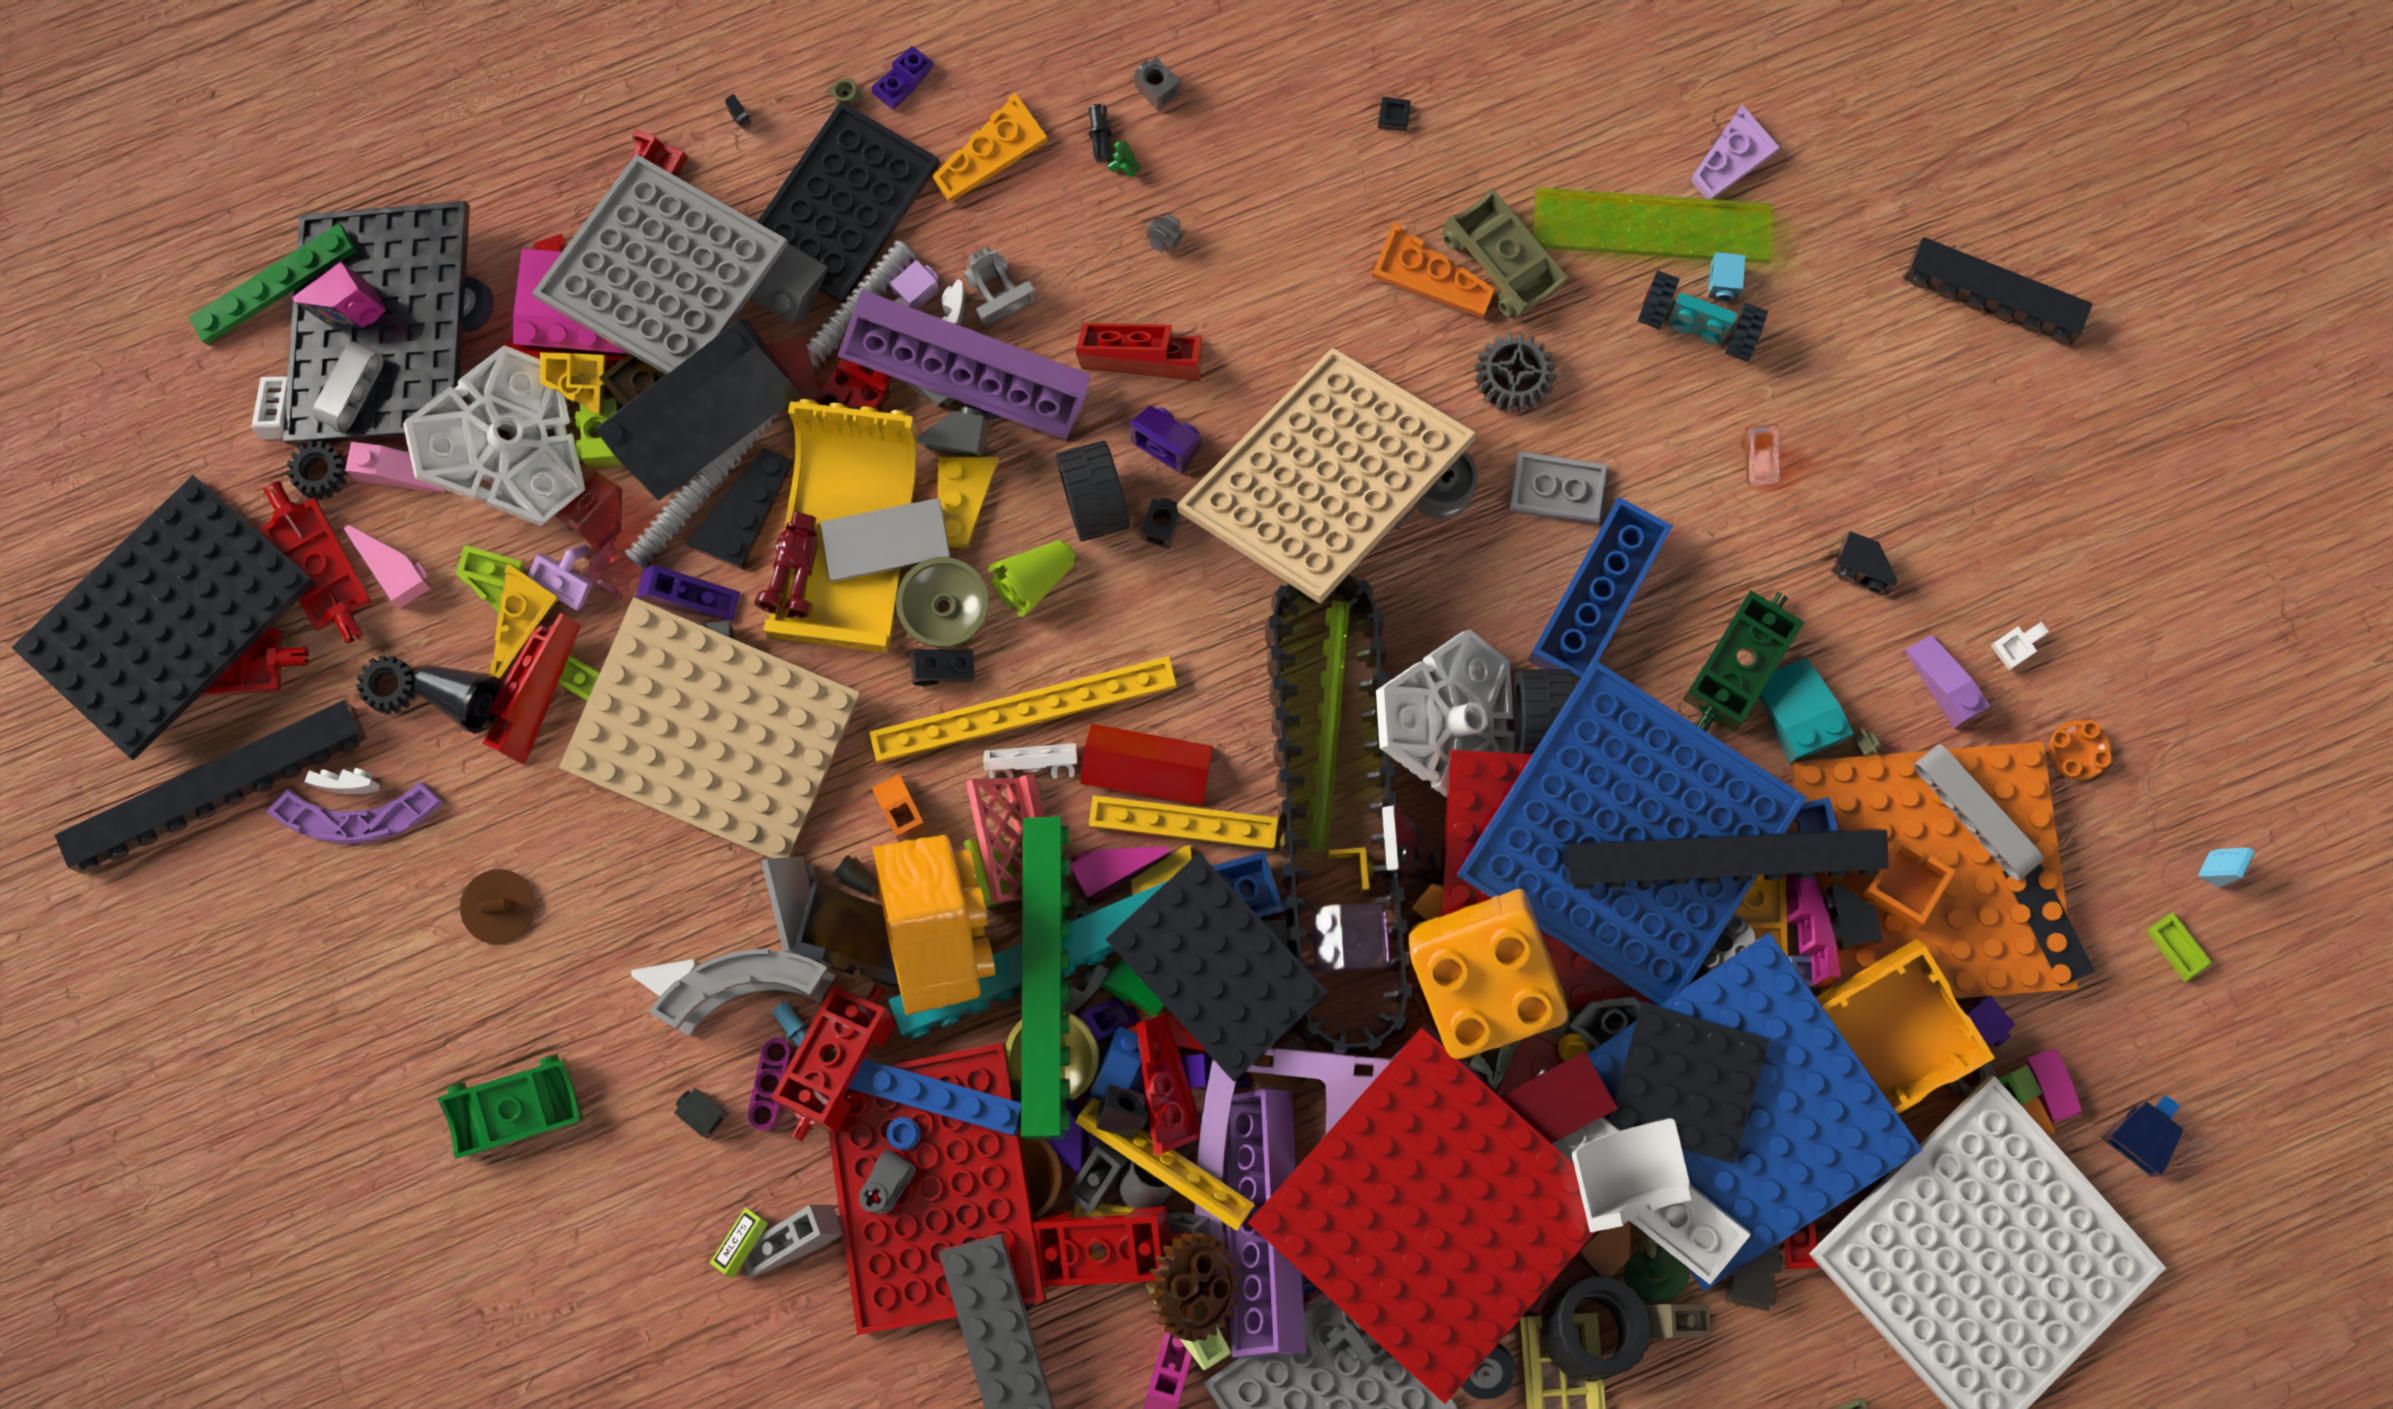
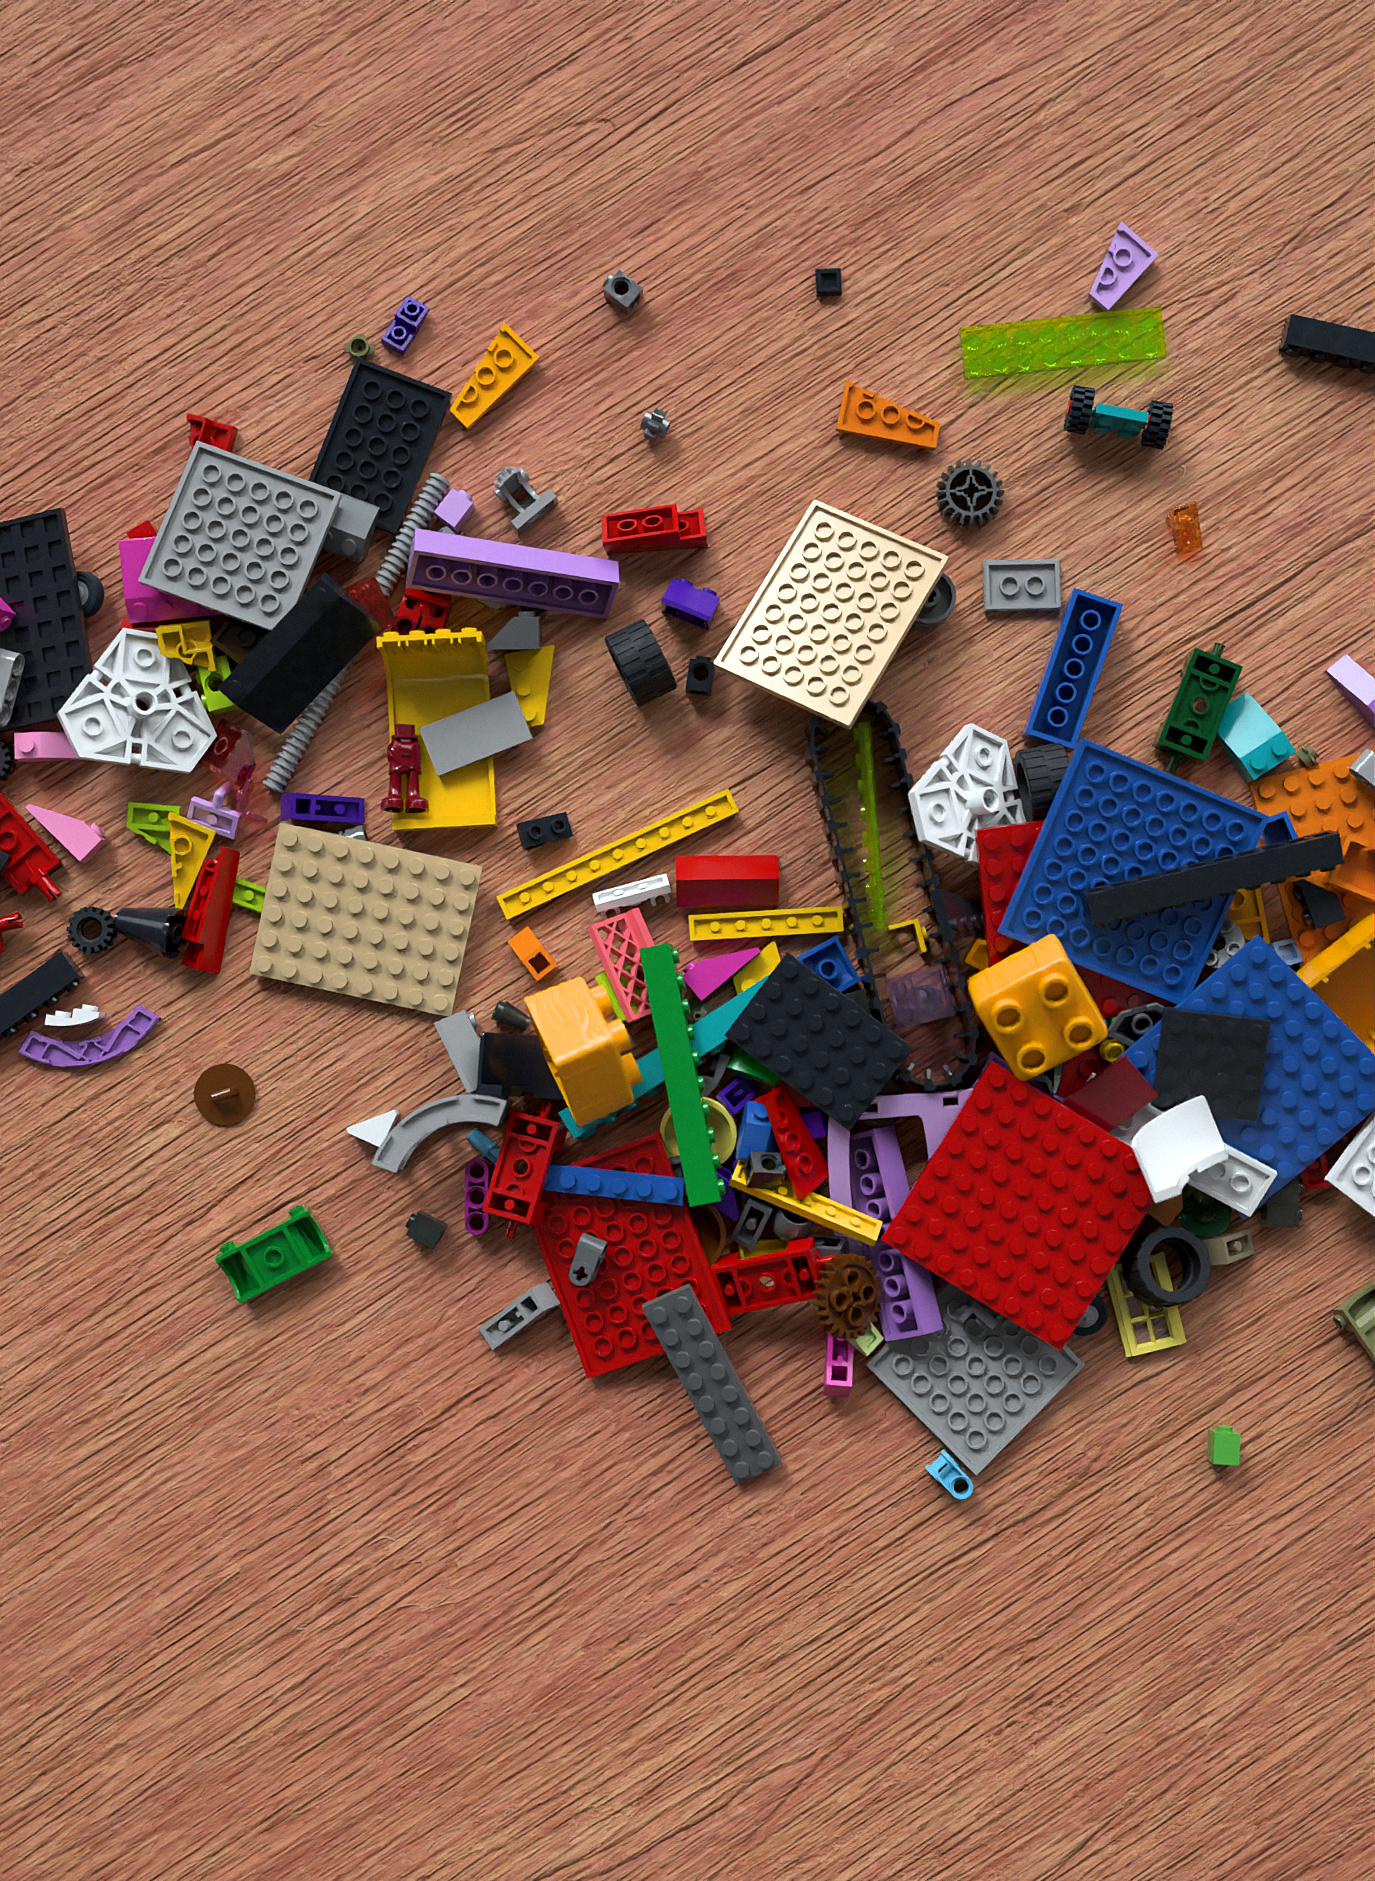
camera: 15 degrees left, 10 degrees up
(737, 111) = (271, 382): black tile -> none
(739, 1243) = (479, 1325): tile -> none
(740, 516) = (350, 735): black wing -> none
(904, 1133) = (593, 1217): blue tile -> none
(940, 582) = (529, 760): olive dish -> none
(954, 303) = (490, 521): white slope -> none
(1031, 575) = (603, 741): lime cone -> none
(1100, 133) = (583, 345): black axle -> none
(1124, 159) = (608, 365): green plant -> none
(1506, 253) = (944, 390): olive piece -> none
(1726, 276) = (1132, 377): medium azure brick -> none
(1815, 931) = (1289, 920): dark pink slope -> none
(1864, 562) = (1282, 604): black slope -> none

